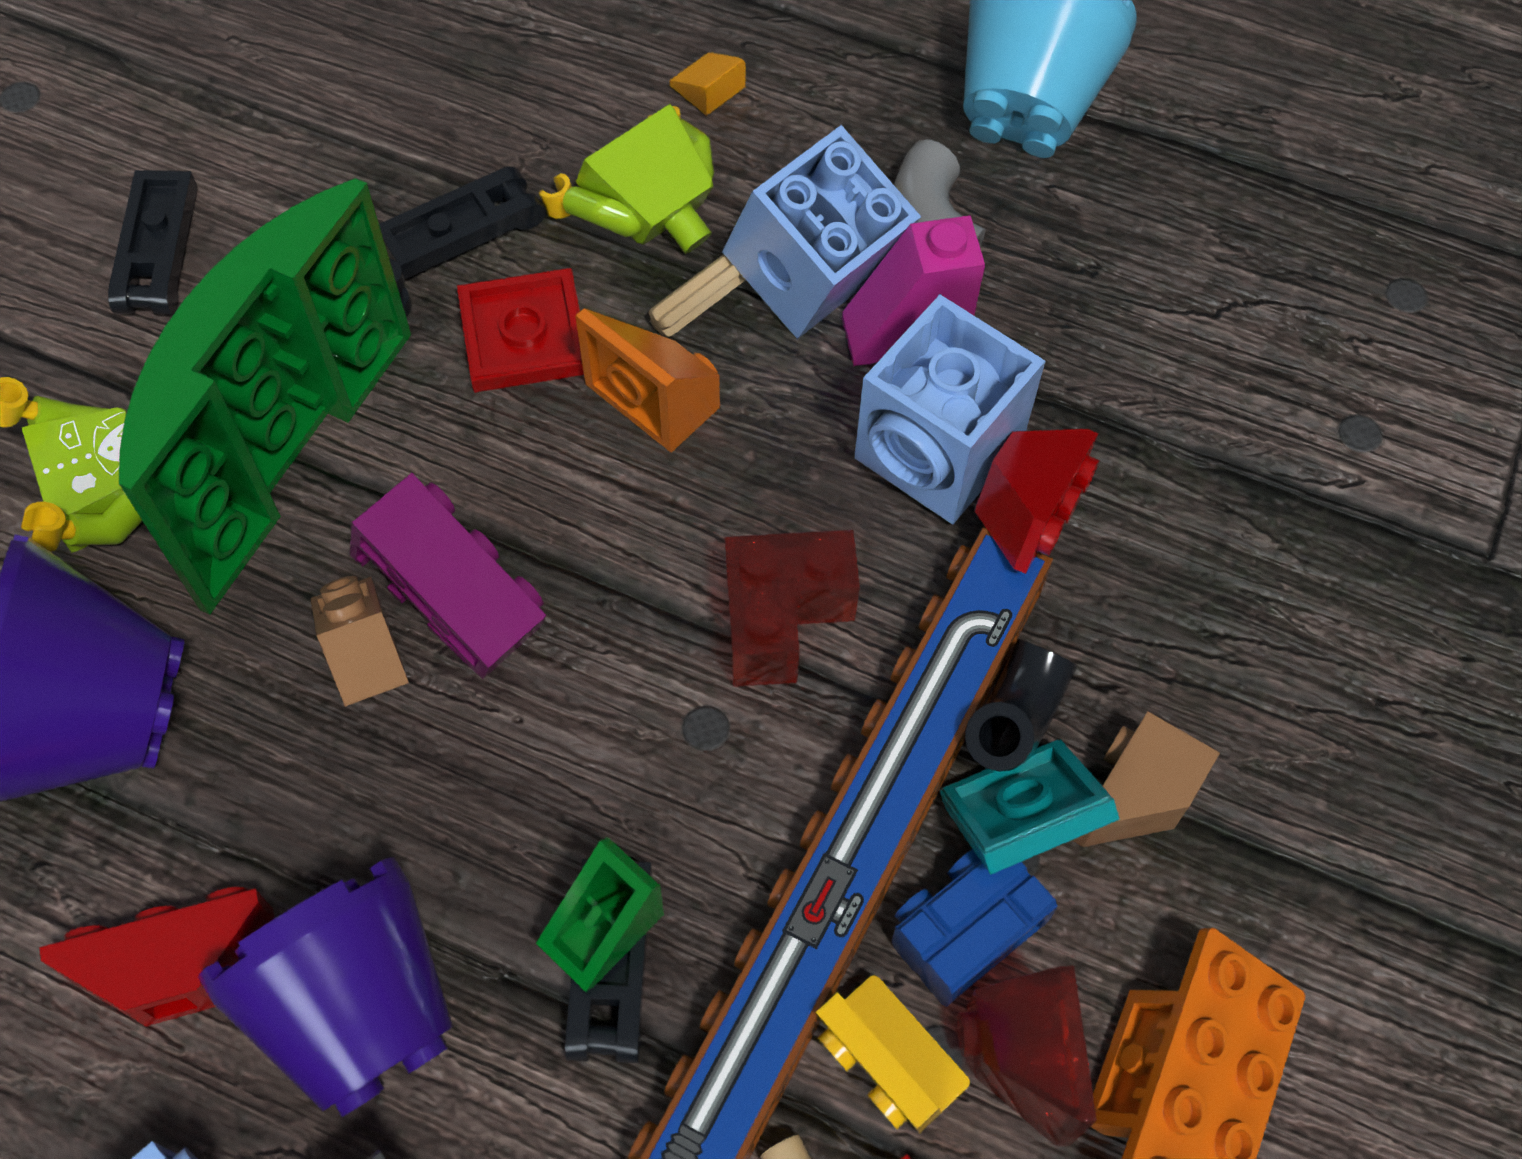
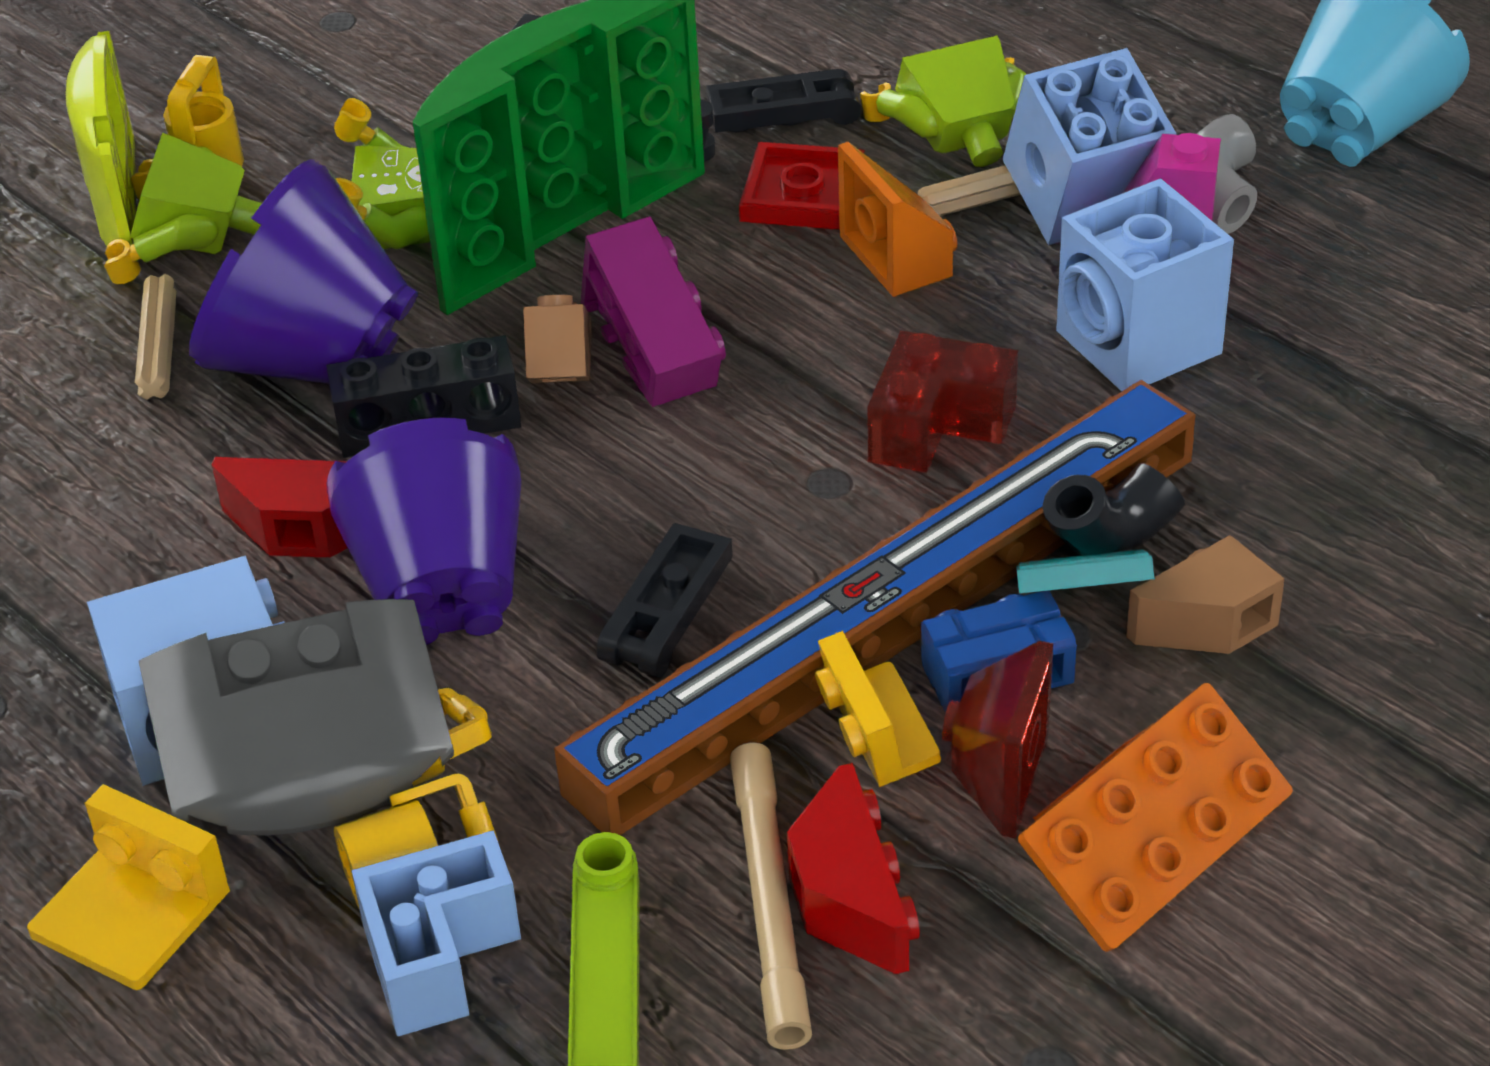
camera: 25 degrees right, 20 degrees down
(236, 763) = (445, 381): none -> black brick
(602, 915) = (673, 542): green slope -> none
(711, 81) = (1056, 50): light orange slope -> none
(1035, 490) = (1209, 362): red slope -> none

